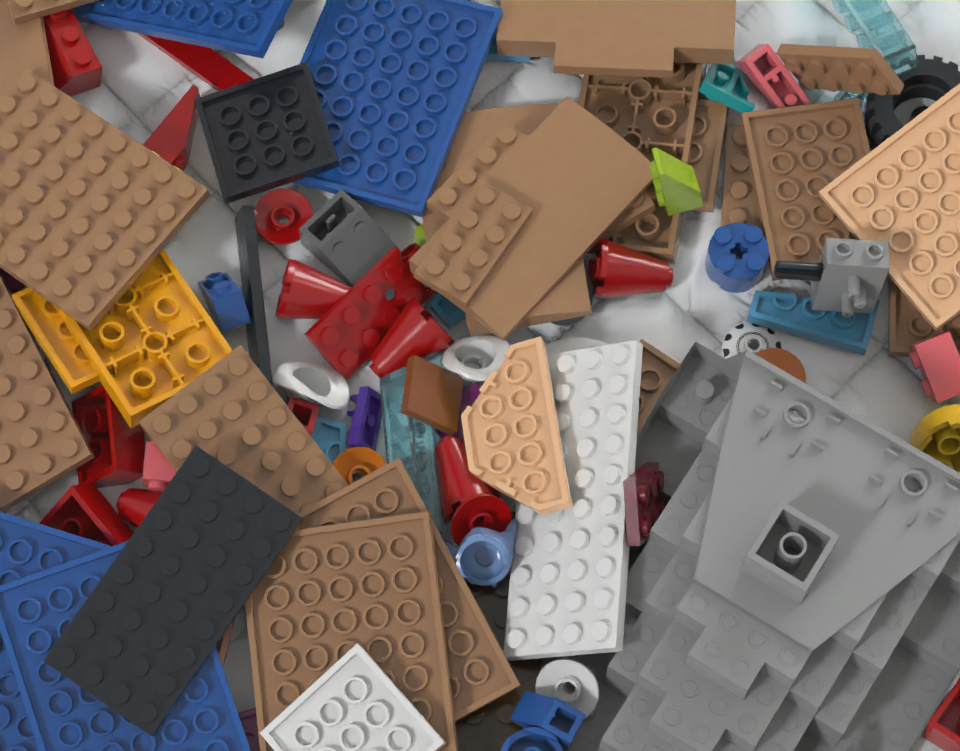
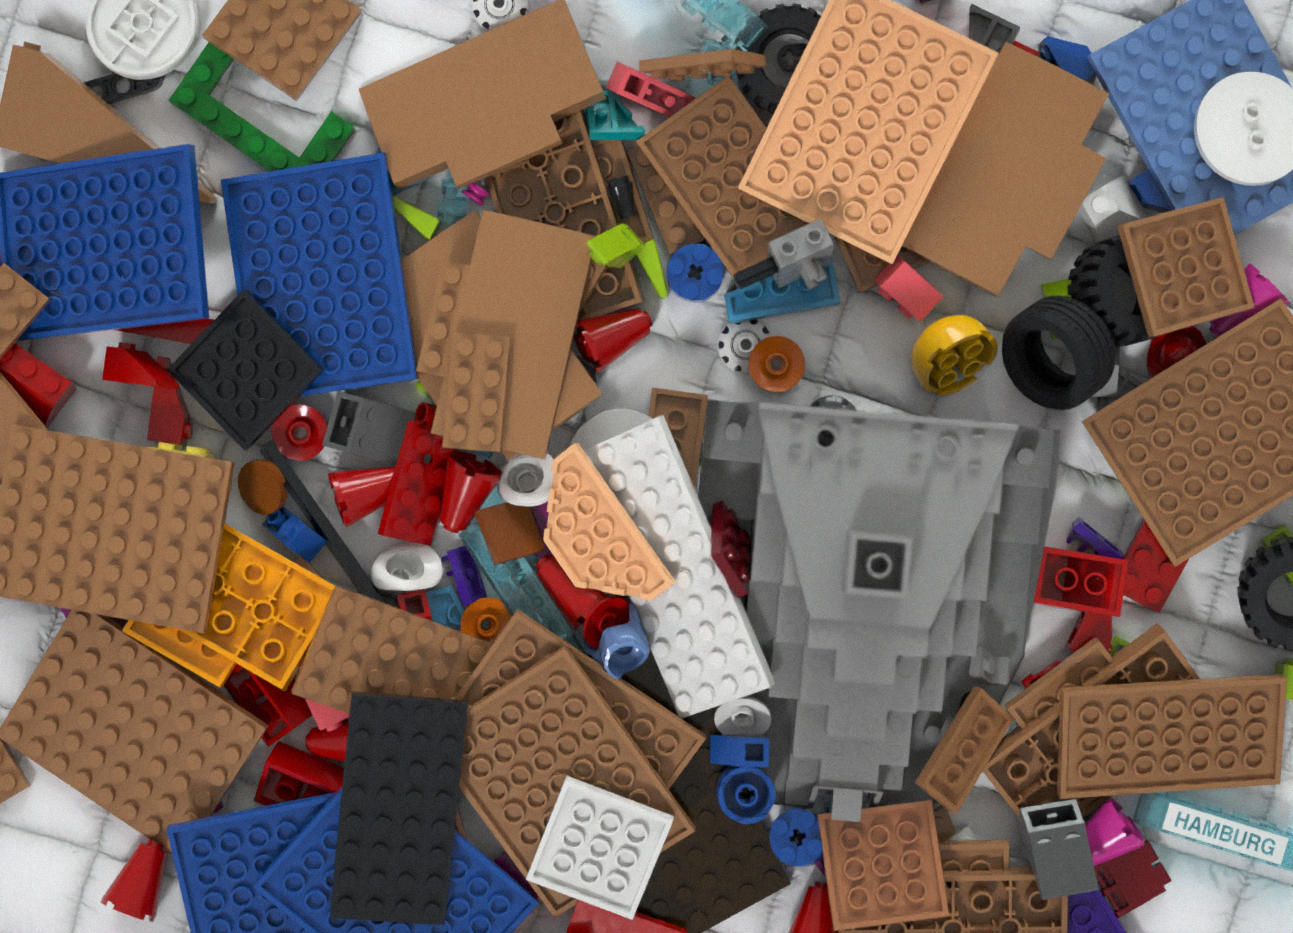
camera: 30 degrees left, 20 degrees up
(163, 85) = (135, 367): none -> red slope
(219, 244) = (262, 486): none -> dark orange tile
(500, 87) = (422, 221): none -> lime slope
(537, 90) = (451, 207): none -> clear light blue plate
(565, 90) = (475, 193): none -> dark pink bush
(698, 229) = (652, 266): none -> lime slope
(703, 152) = (622, 195): none -> black cone

